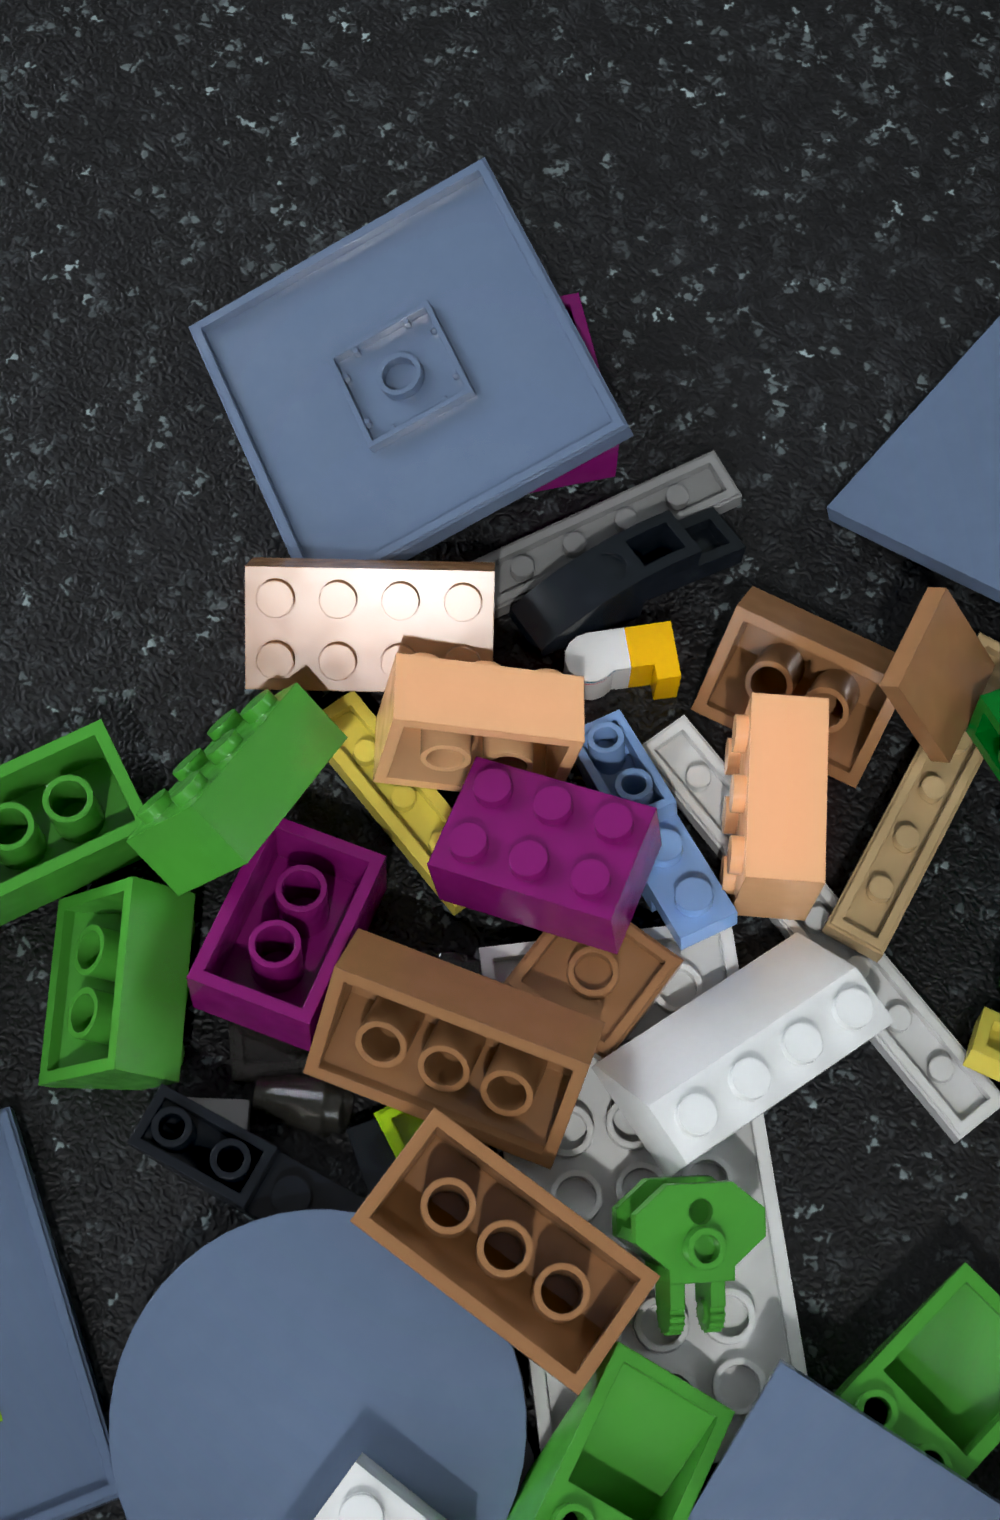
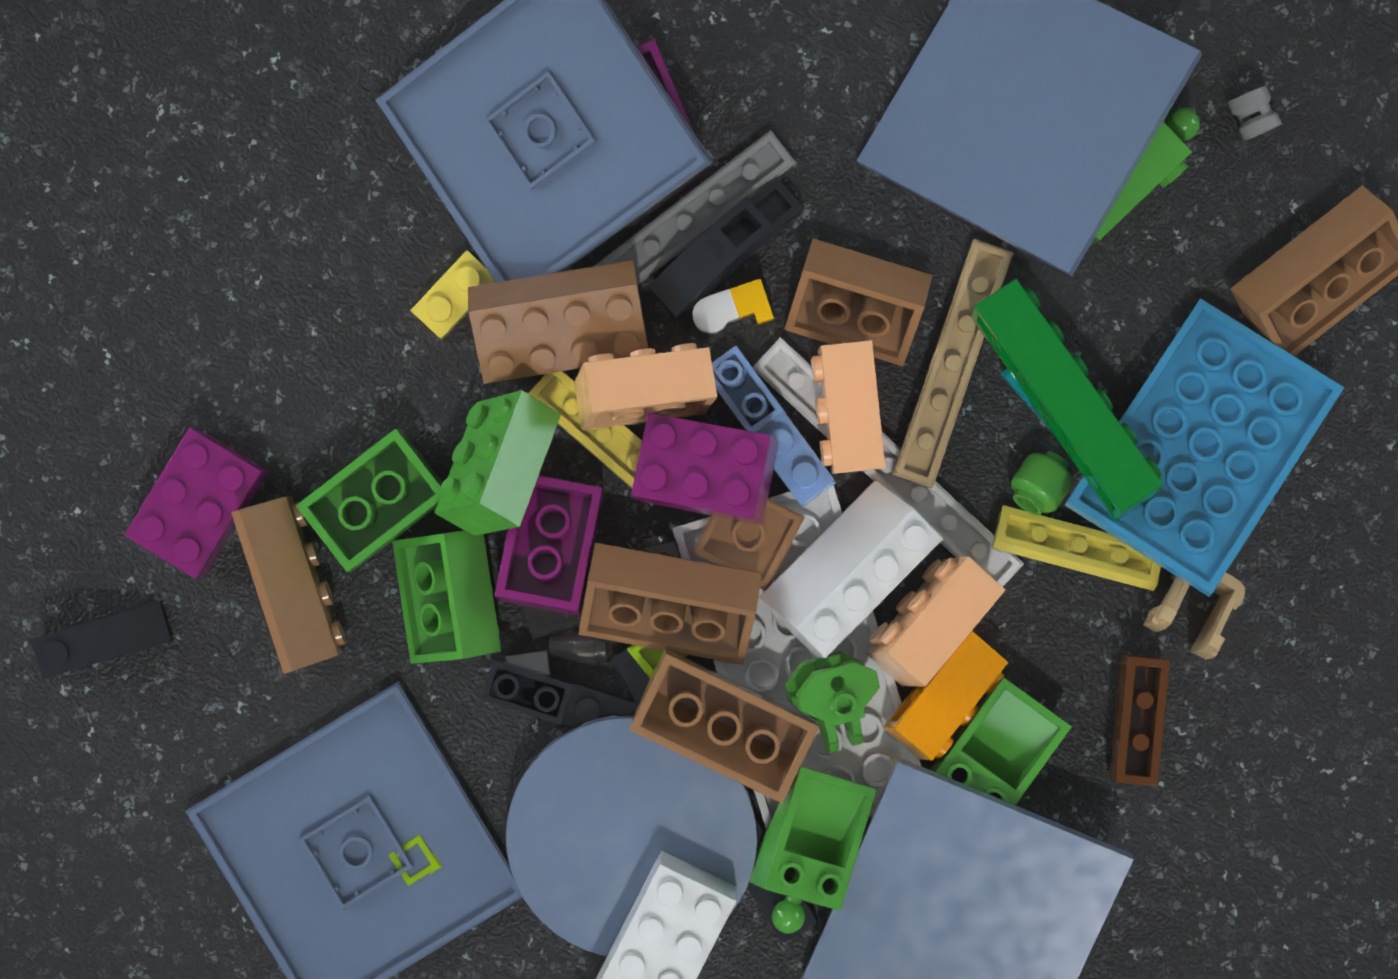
camera: 10 degrees left, 20 degrees up
(216, 591) = (448, 298): none -> light yellow plate
(864, 1147) = (933, 620): none -> light nougat brick
(866, 1282) = (950, 699): none -> light orange brick
(937, 674) = (945, 293): medium nougat tile -> none

